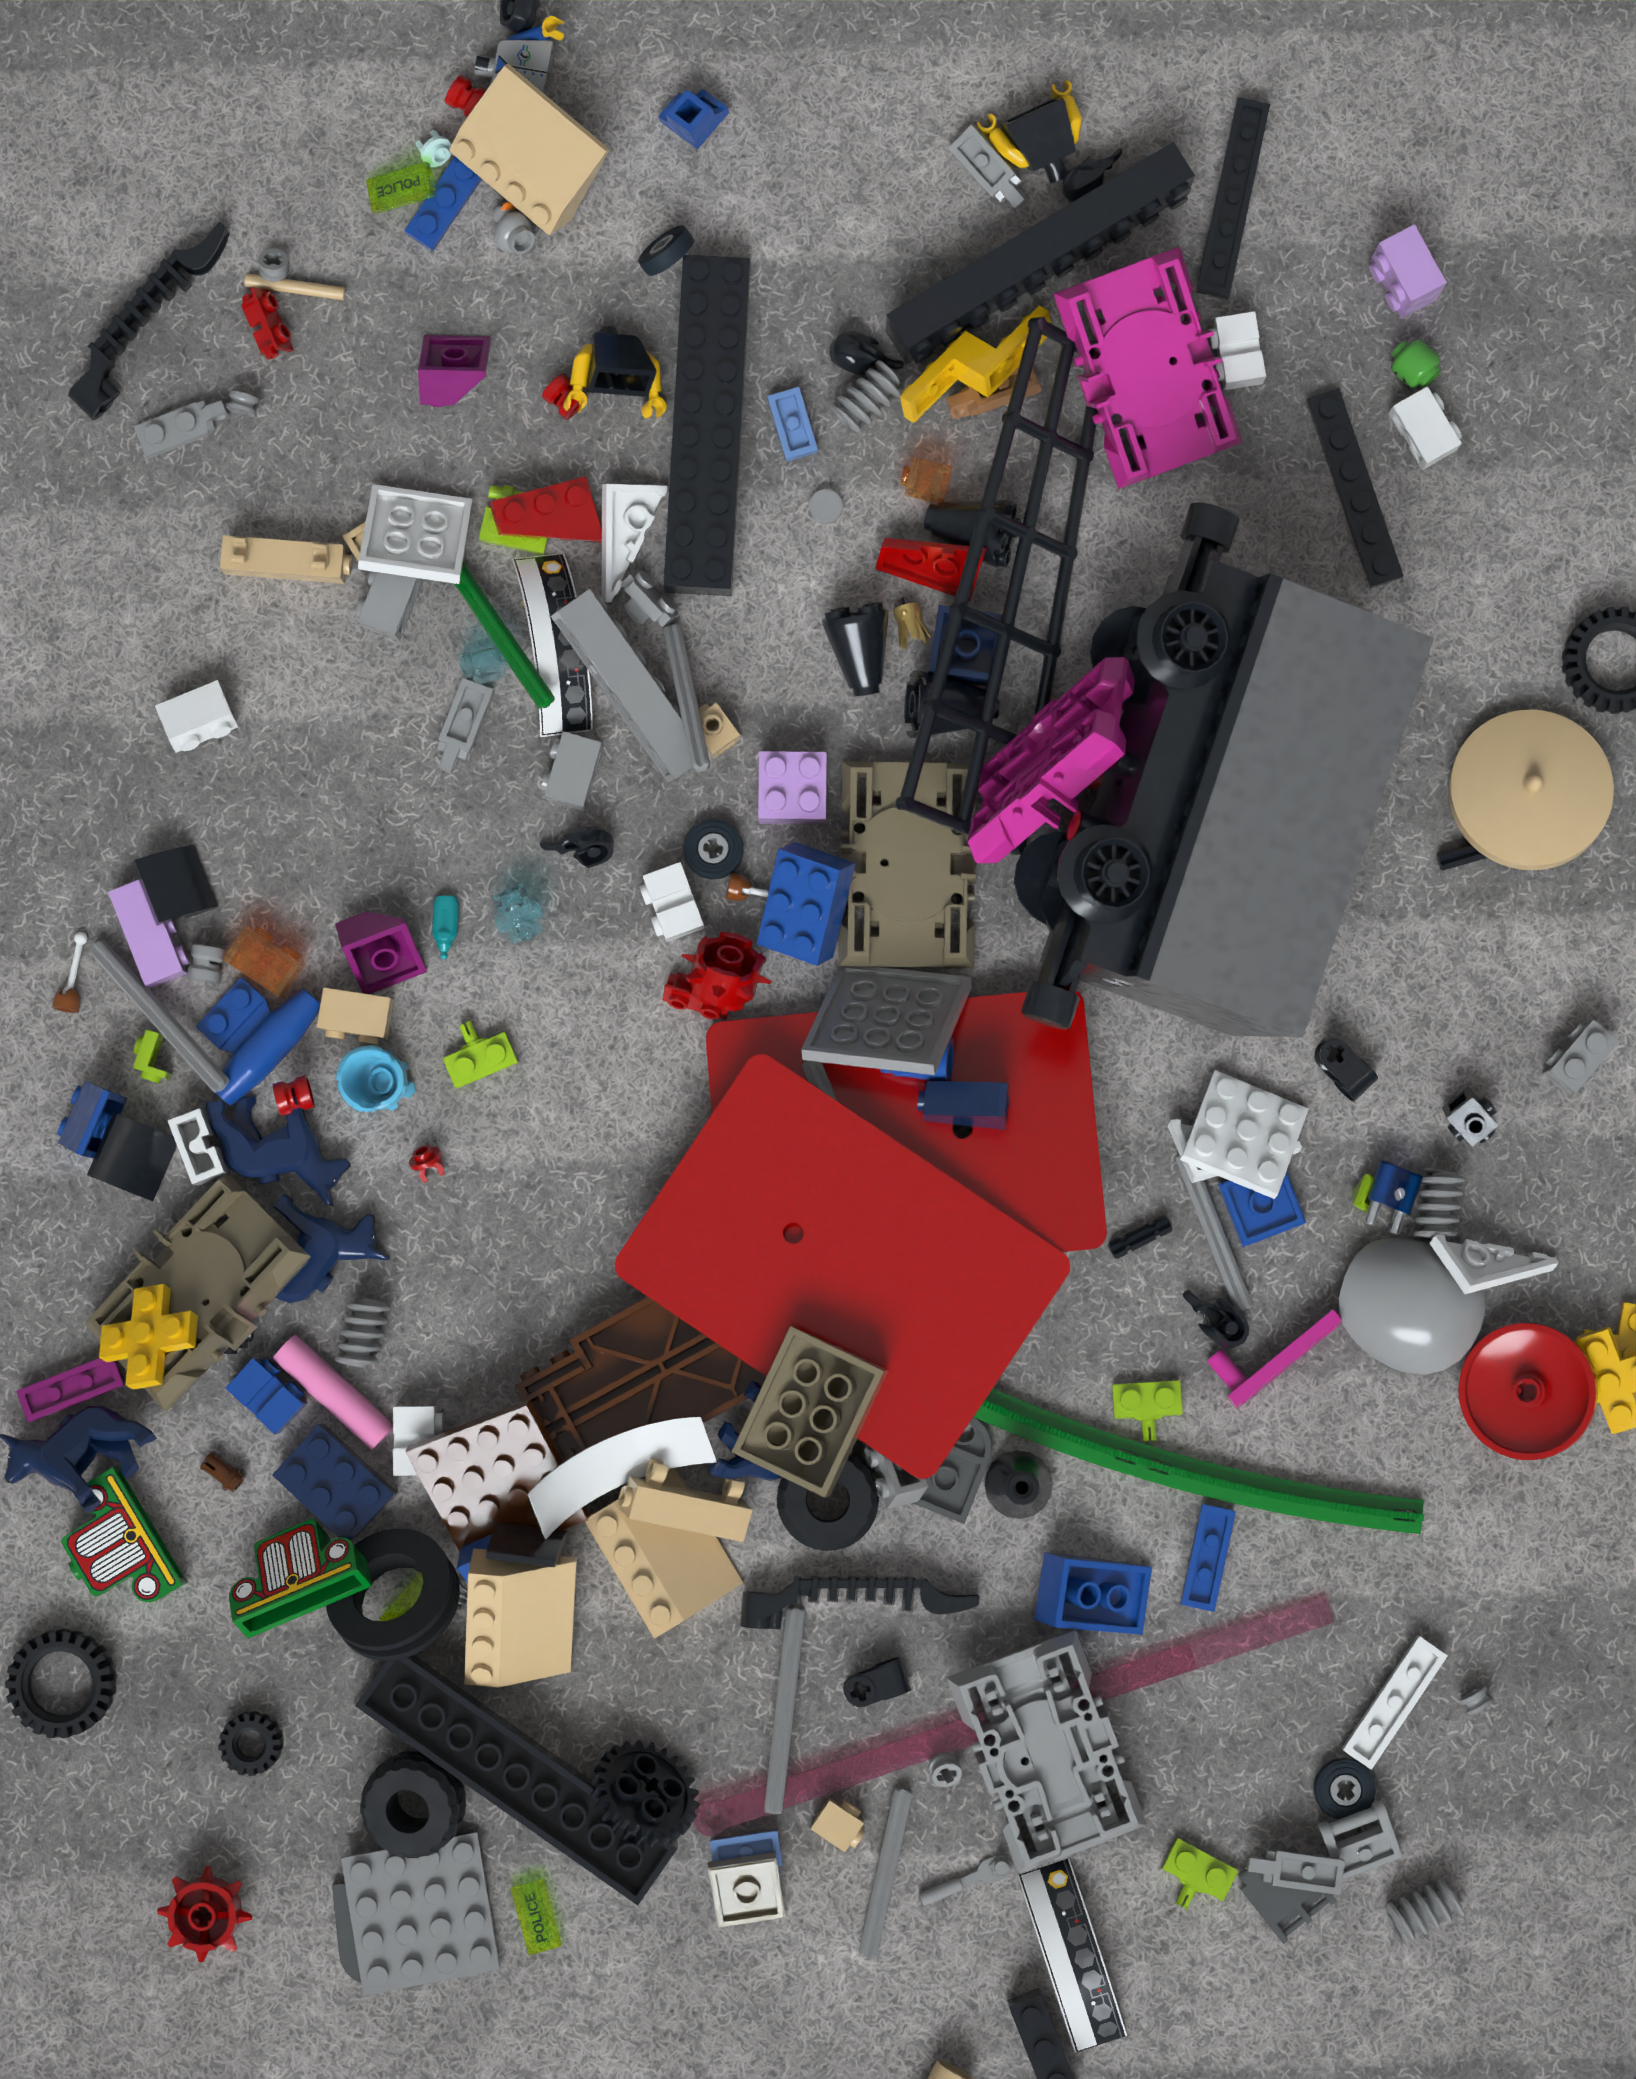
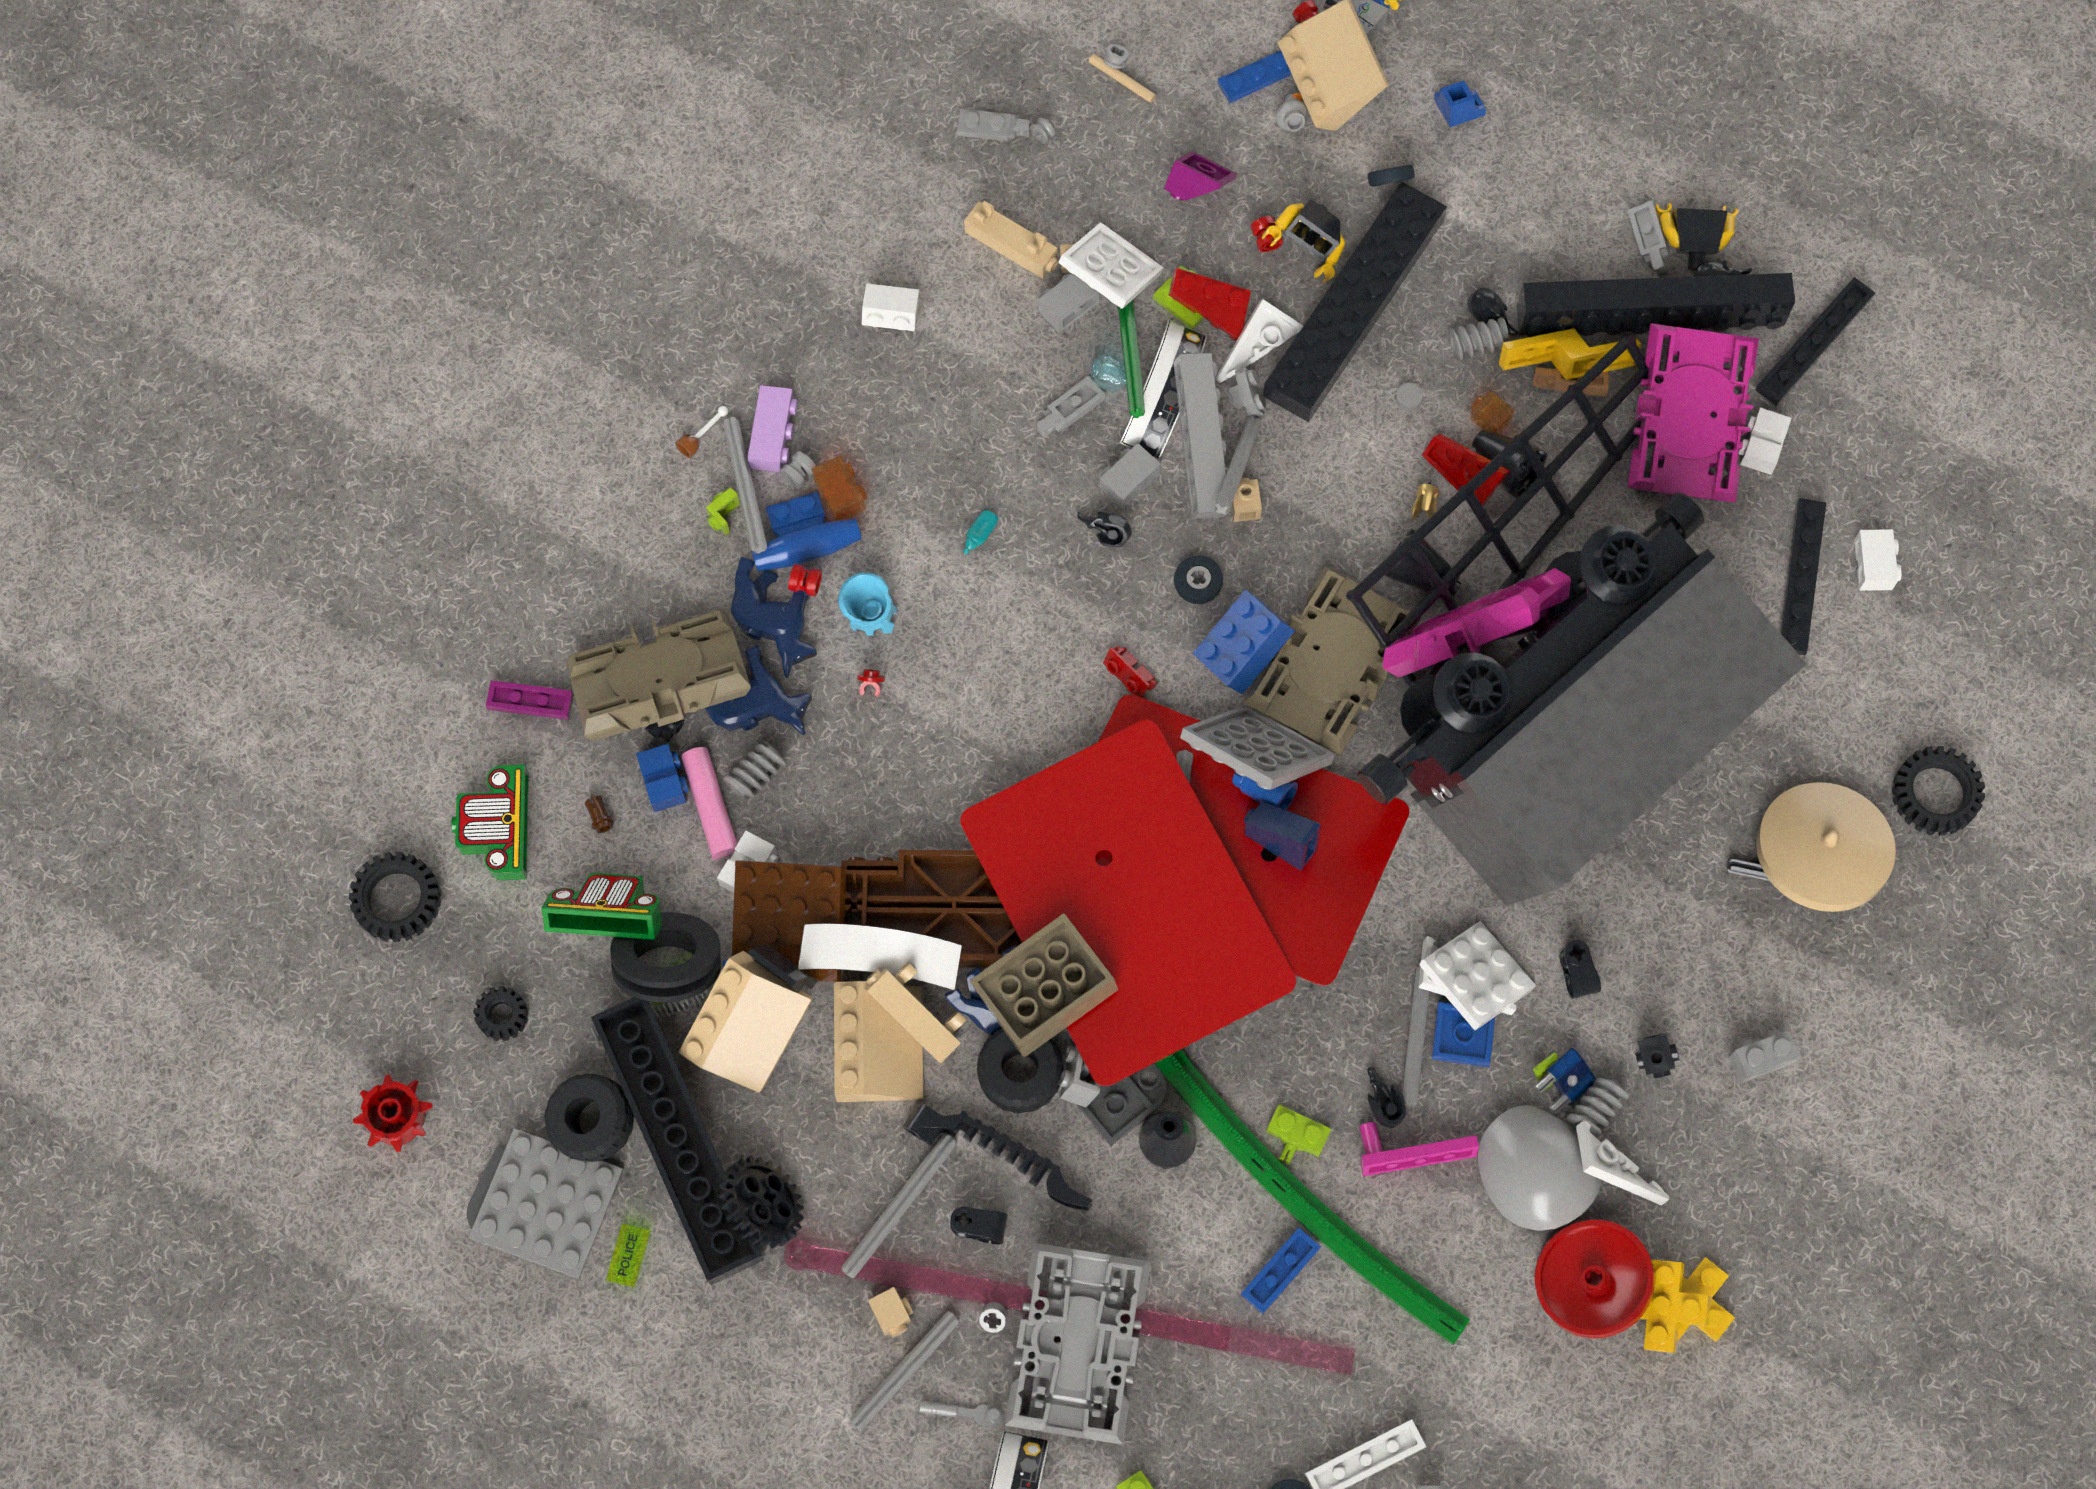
camera: 30 degrees right, 15 degrees down
(72, 1449) = (505, 738): dark blue animal -> none
(89, 1118) = (657, 528): blue slope -> none
(94, 390) = (947, 72): black piece -> none
(133, 1157) = (669, 567): black slope -> none
(148, 1336) = (601, 682): yellow plate -> none
(174, 884) = (808, 405): black slope -> none
(200, 1159) = (716, 583): white brick -> none
(262, 308) = (1091, 79): red hinge -> none
(334, 1483) = (672, 862): dark blue brick -> none
(355, 1014) = (880, 554): tan brick -> none
(379, 950) = (923, 523): magenta slope -> none
(400, 187) = (1231, 51): clear neon green tile -> none
(435, 150) = (1268, 40): light aqua plate -> none
(479, 1057) = (950, 631): lime plate -> none
(517, 914) = (1034, 548): clear light blue brick -> none
(672, 902) = (1148, 599): white brick -> none
(725, 970) = (1159, 659): red brick -> none
(740, 888) = (1202, 614): dark orange hinge -> none
(746, 1845) = (810, 1295): medium blue plate -> none
(746, 1889) = (794, 1322): tile -> none
(792, 424) = (1416, 331): medium blue plate -> none
(792, 787) = (1279, 565): lavender brick -> none
(859, 644) = (1381, 494): black cone -> none
(972, 652) = (1456, 534): dark blue brick -> none
(1092, 1594) = (1179, 1248): blue slope -> none
(1140, 1237) = (1358, 1010): black axle -> none
(1407, 272) = (1917, 446): lavender brick -> none
(1415, 364) = (1892, 512): bright green head -> none

